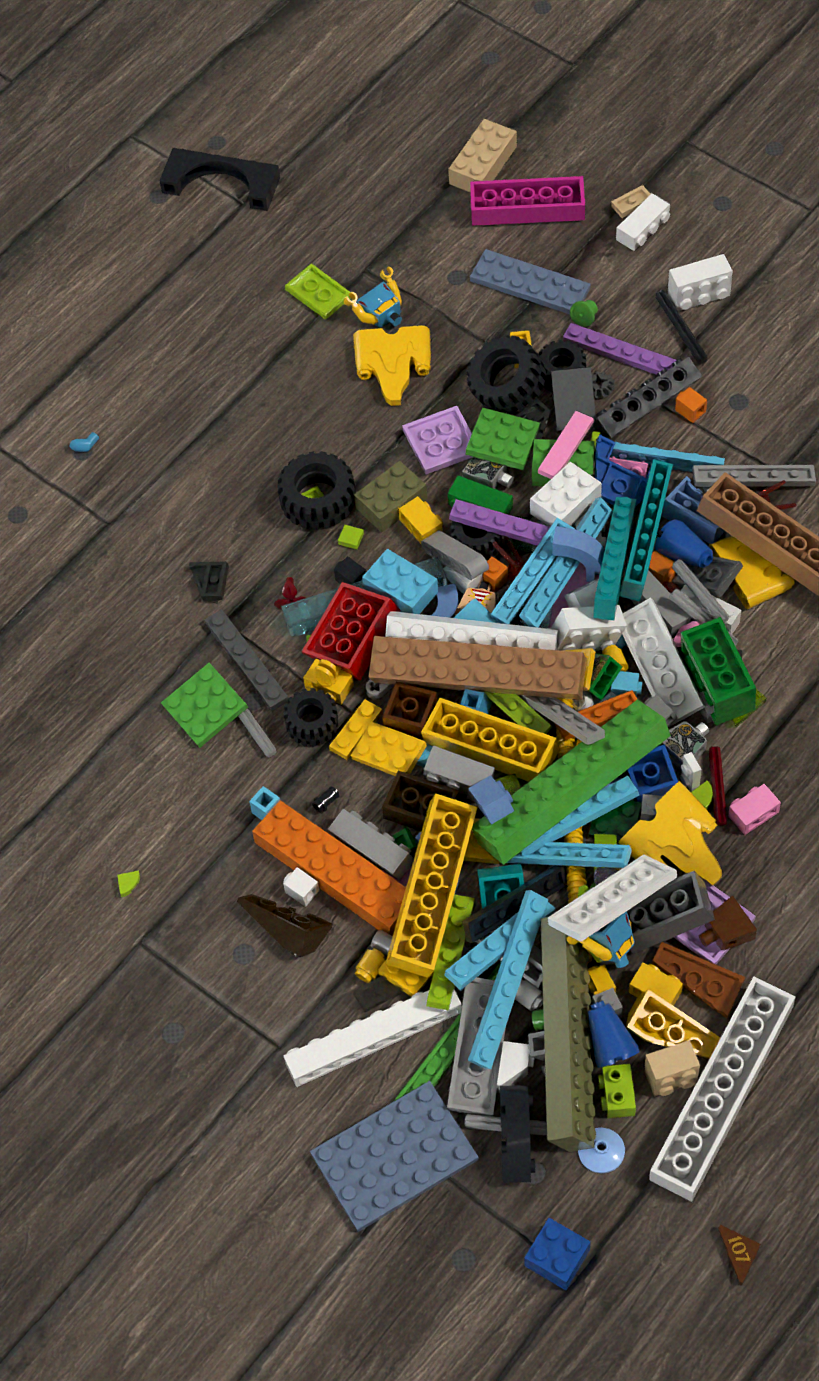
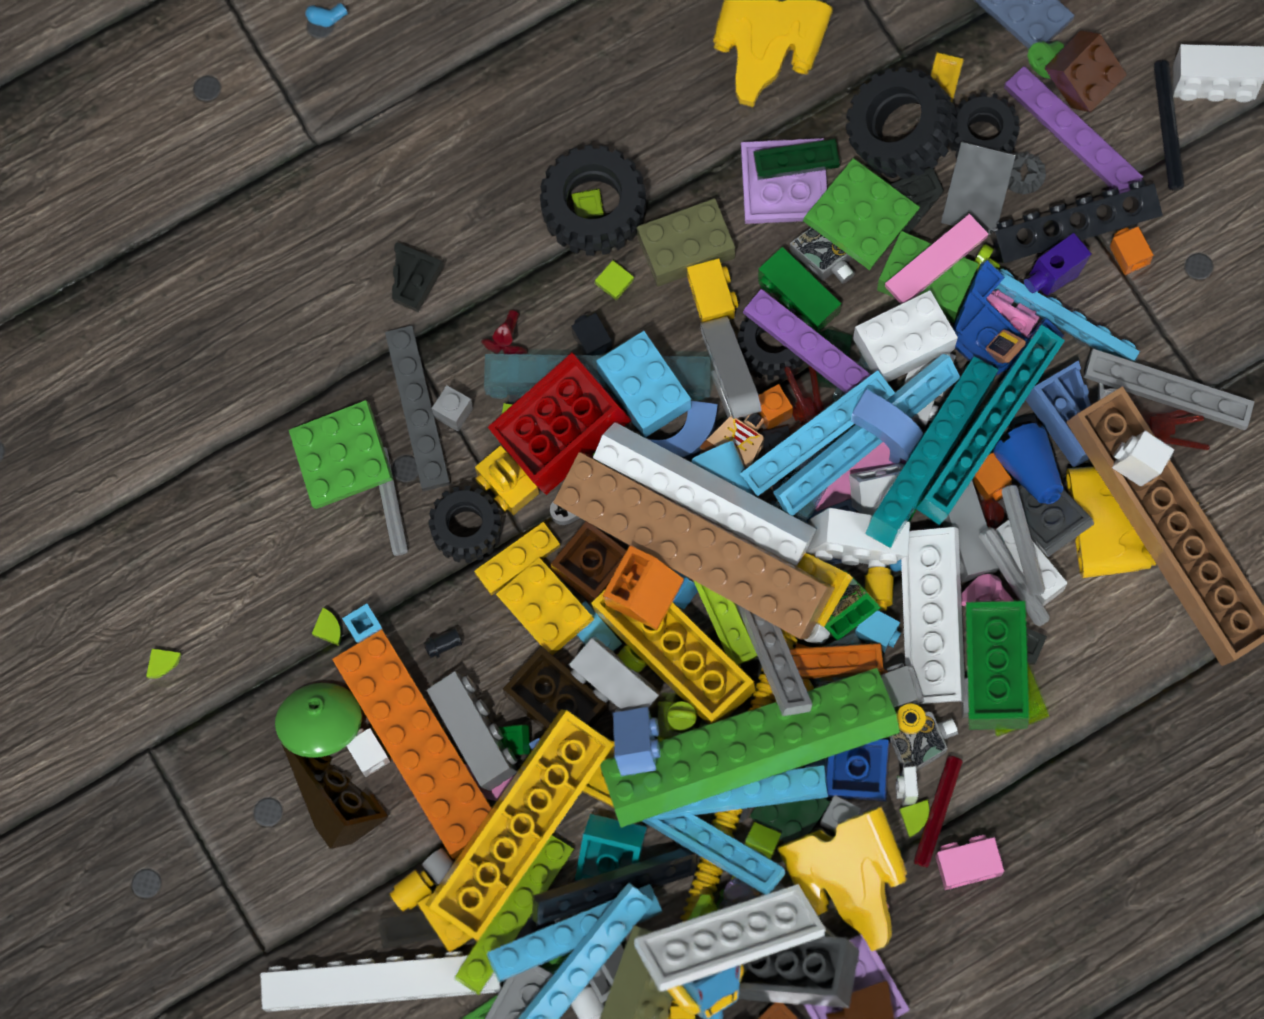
camera: 20 degrees right, 15 degrees up
(239, 819) = (327, 628): none -> lime tile
(257, 876) = (319, 730): none -> bright green dish
(271, 649) = (452, 408): none -> light grey brick
(444, 422) = (796, 159): none -> dark green tile
(454, 705) = (642, 588): none -> orange slope
(514, 781) = (681, 716): none -> lime tile
(613, 309) = (1085, 71): none -> reddish brown brick
(634, 484) = (1005, 346): none -> slope
(648, 433) = (1058, 266): none -> dark purple torso
(676, 728) = (911, 718): none -> yellow tile
(758, 504) = (1142, 458): none -> white brick

